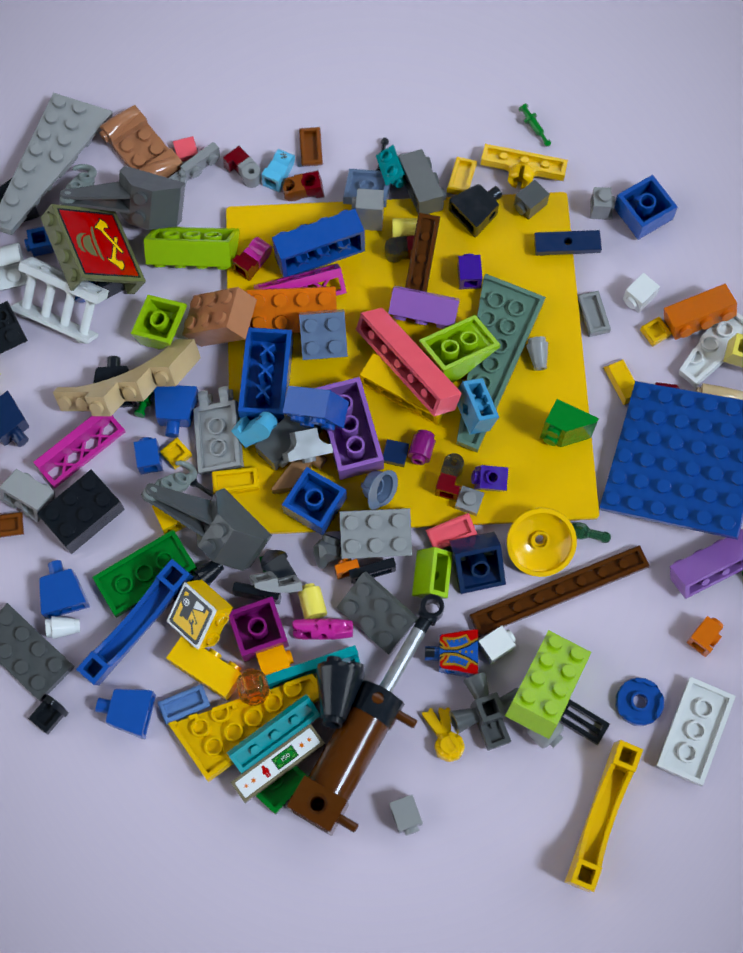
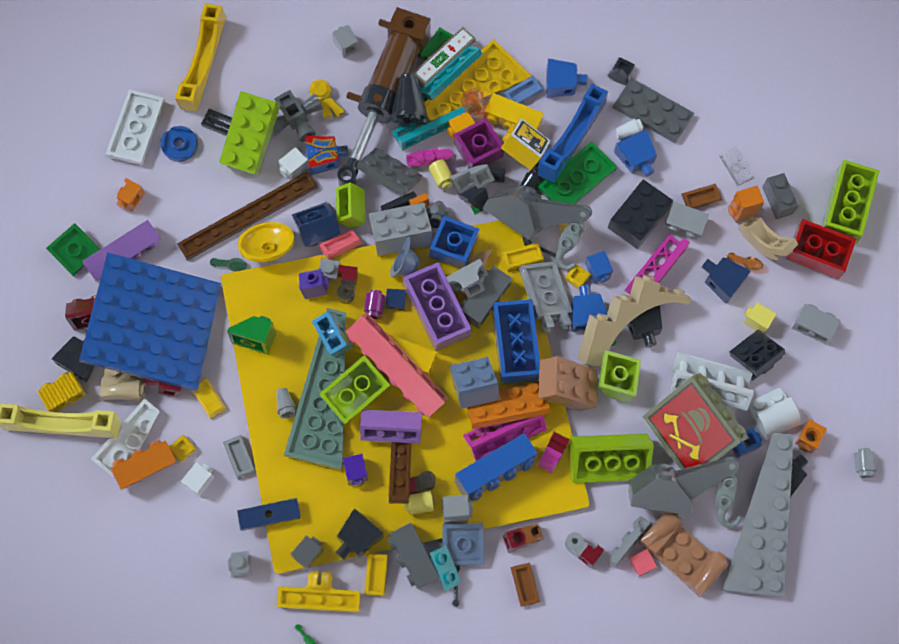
camera: 165 degrees right, 0 degrees up
(254, 430) = (515, 291): medium azure leg -> none
(278, 170) = (550, 552): medium azure leg -> none
(315, 407) = (466, 299): blue brick -> none
(645, 207) = (198, 563): blue brick -> none

